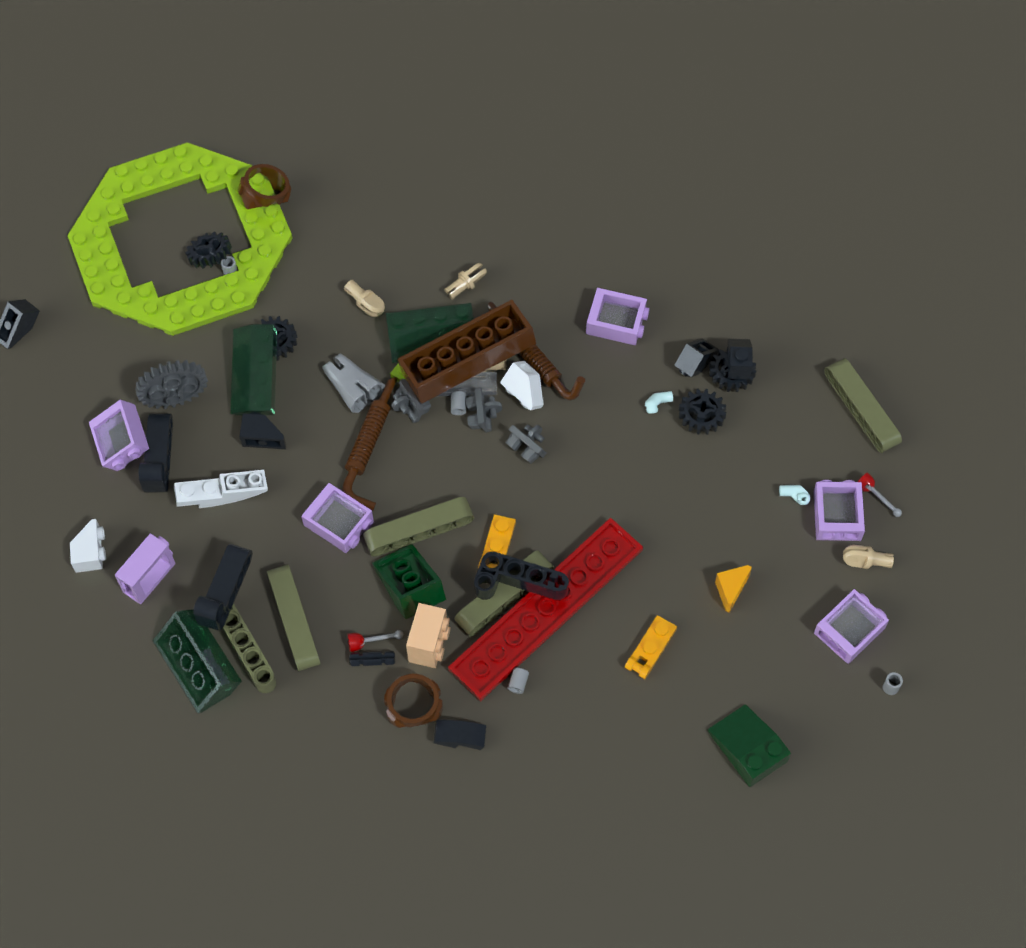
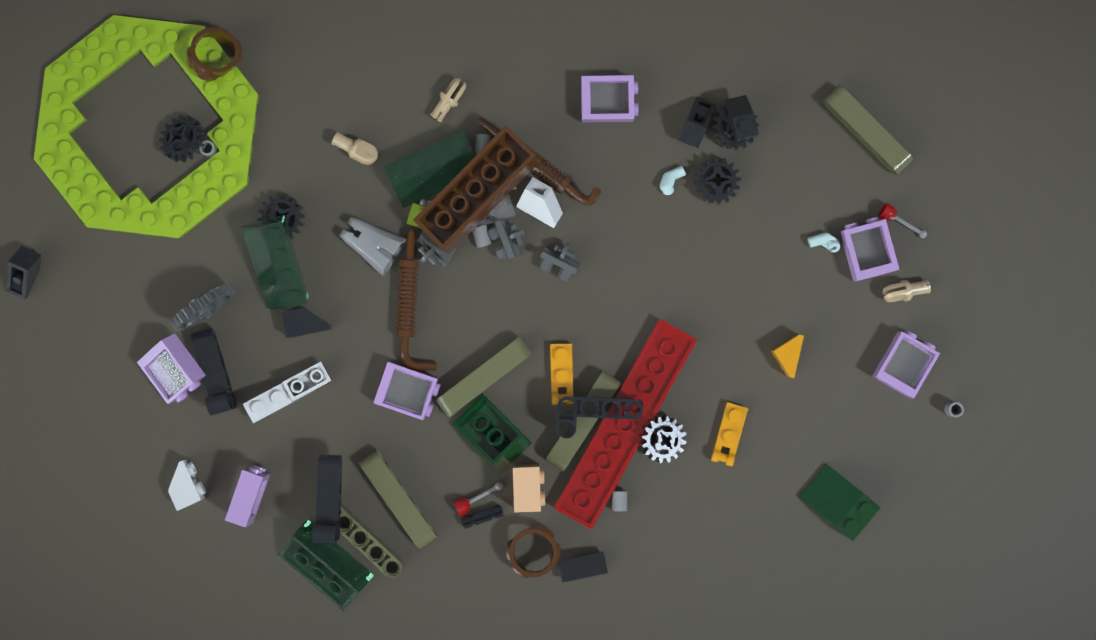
camera: 15 degrees left, 25 degrees up
(582, 638) = (672, 439): none -> gear

